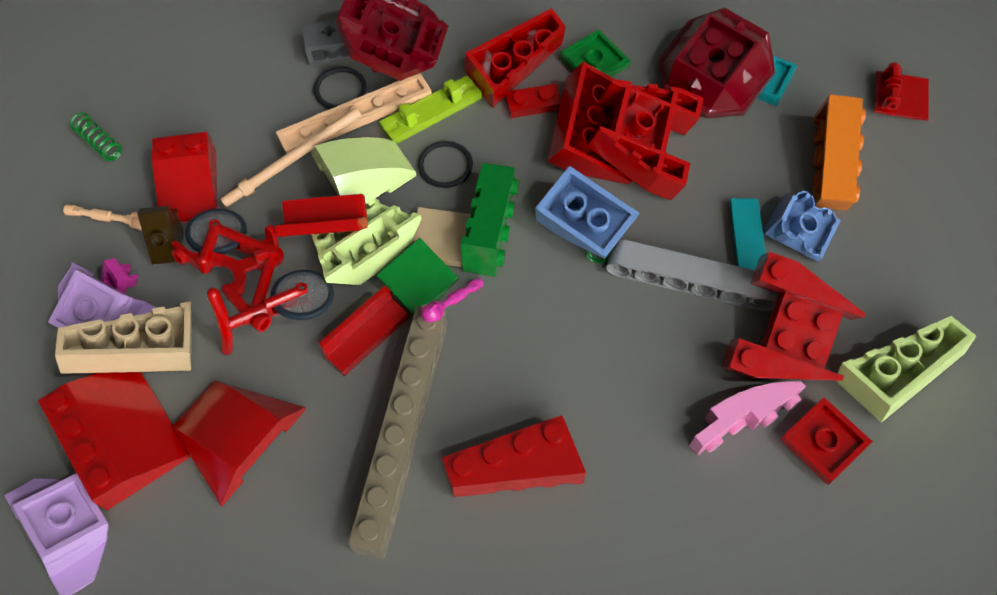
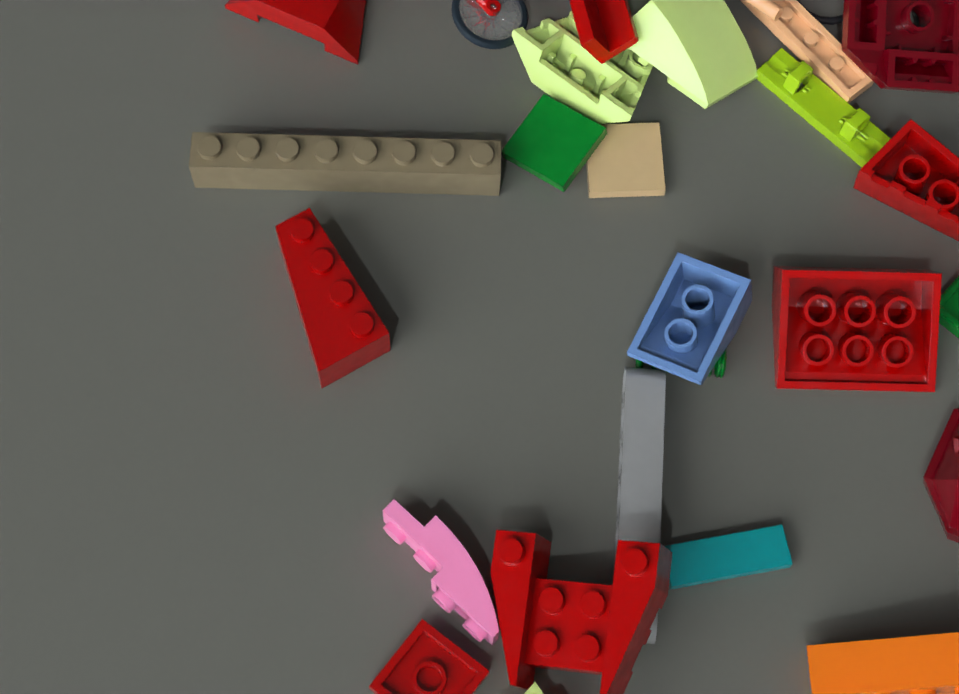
camera: 75 degrees right, 5 degrees up
(363, 331) = (466, 98): red panel -> none
(435, 310) = (490, 155): dark pink piece -> none
(445, 184) = (742, 175): black piece -> none
(488, 220) = (660, 207): green wedge -> none
(533, 100) = (879, 235): red plate -> none
(642, 131) = (851, 372): red wedge -> none
(802, 225) = (762, 632): medium blue slope -> none

